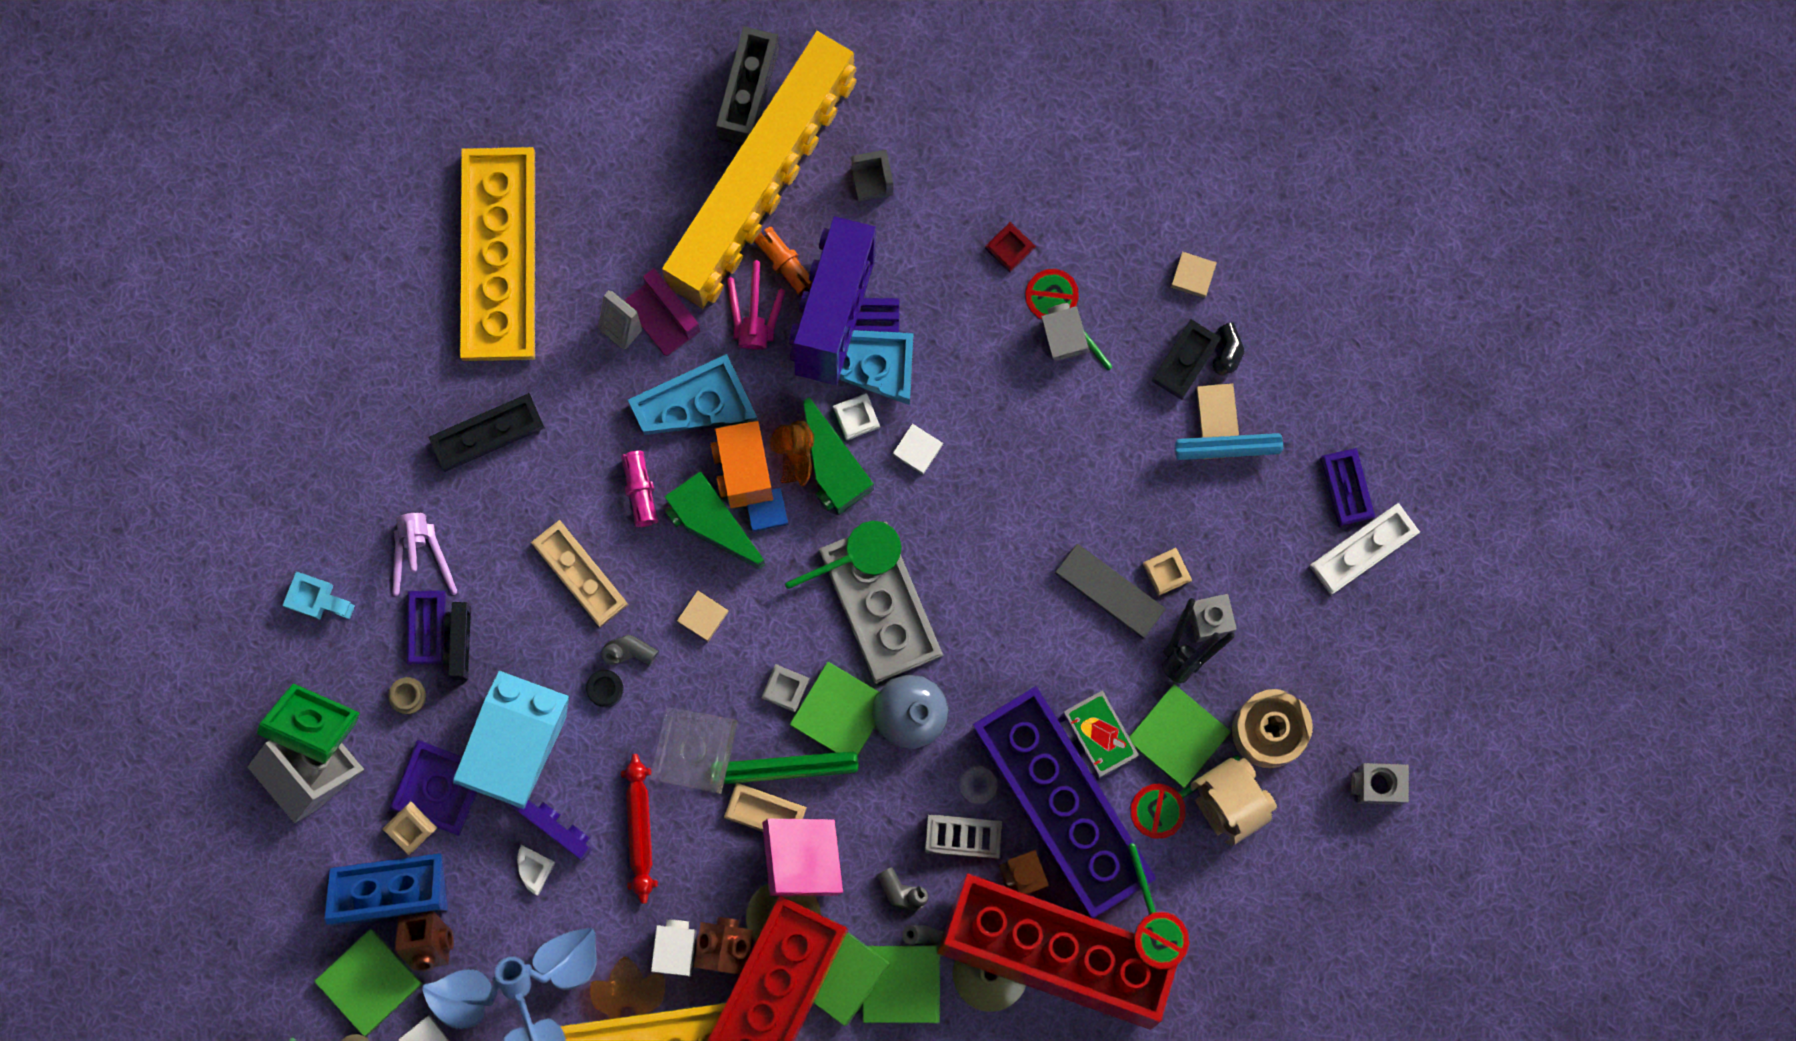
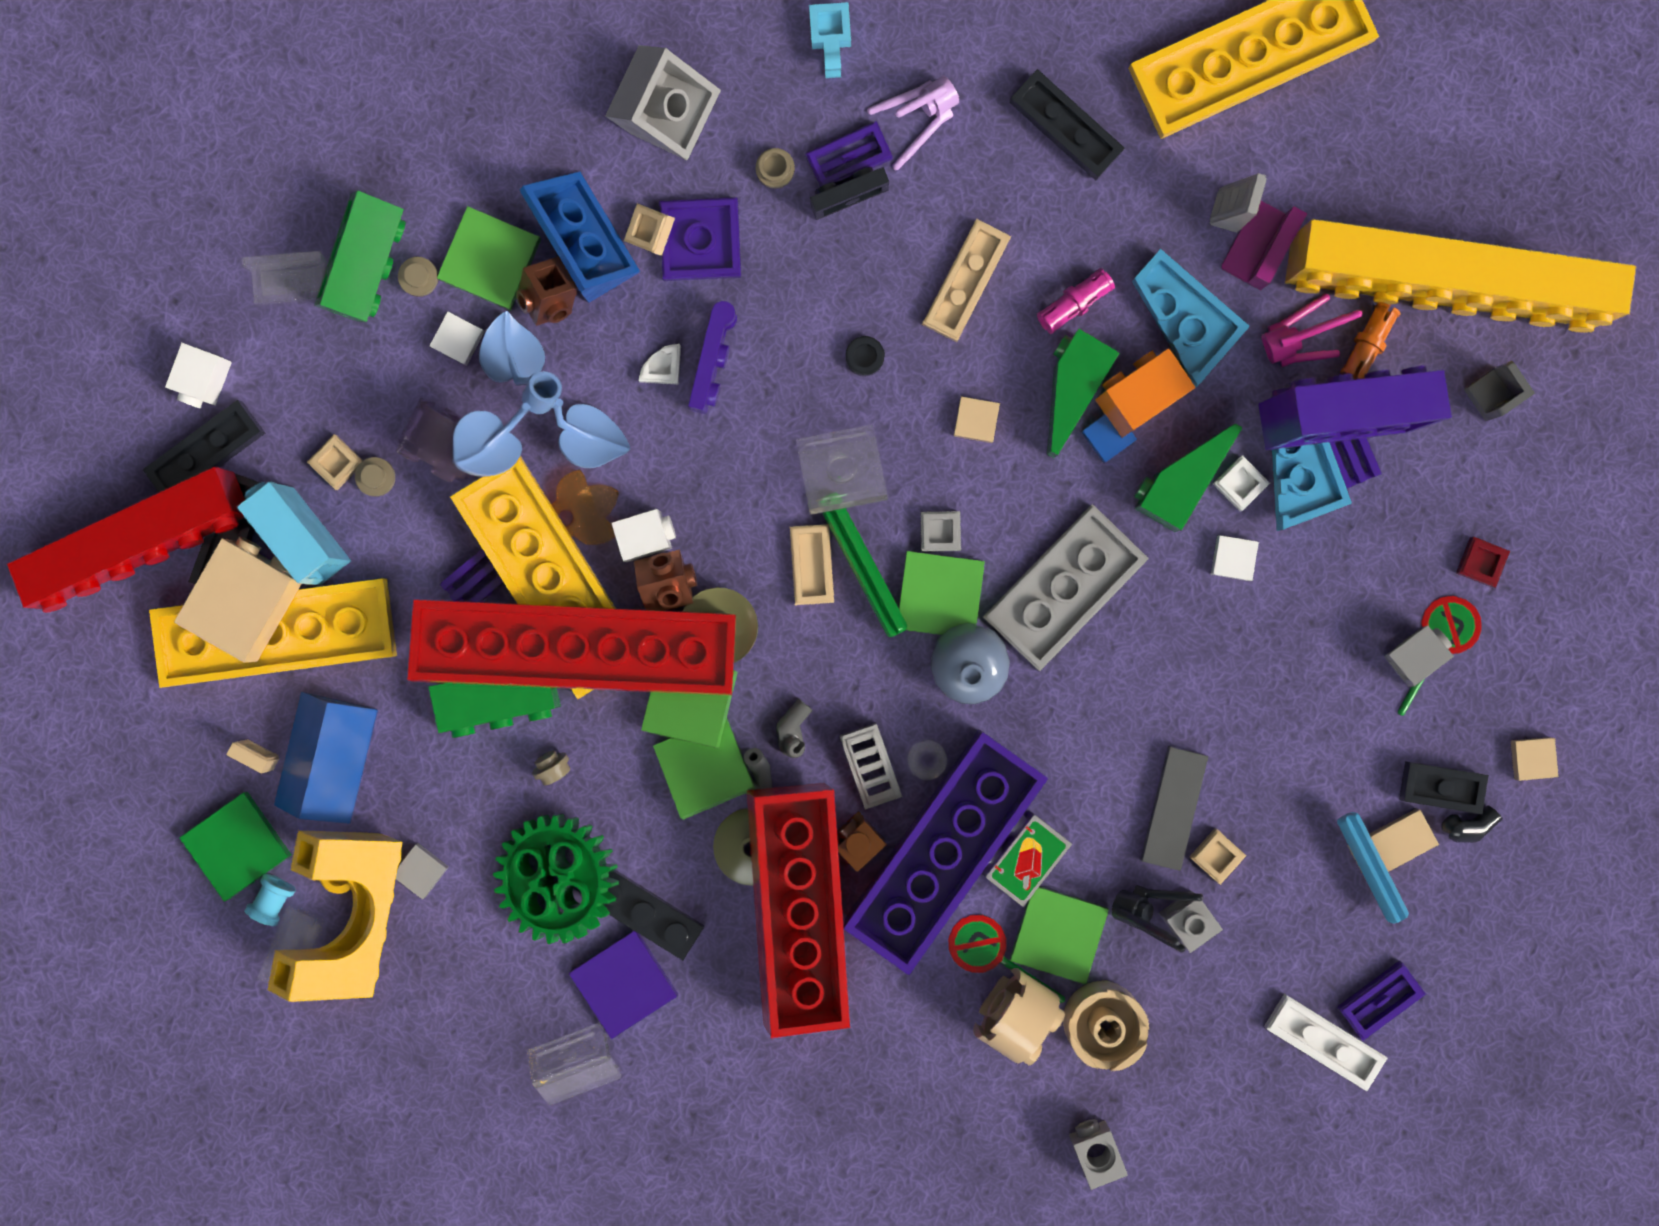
camera: 70 degrees right, 10 degrees up
(308, 723) = (705, 83): green tile -> none
(512, 739) = (774, 287): medium azure slope -> none
(627, 648) = (913, 360): dark grey arm -> none
(639, 829) = (744, 450): red wheel -> none
(747, 85) = (1542, 221): dark grey brick -> none
(795, 444) = (1187, 435): clear orange plate -> none
(802, 857) = (782, 620): tile -> none
(870, 548) = (1114, 556): green piece -> none
(1161, 936) = (853, 1002): piece -> none

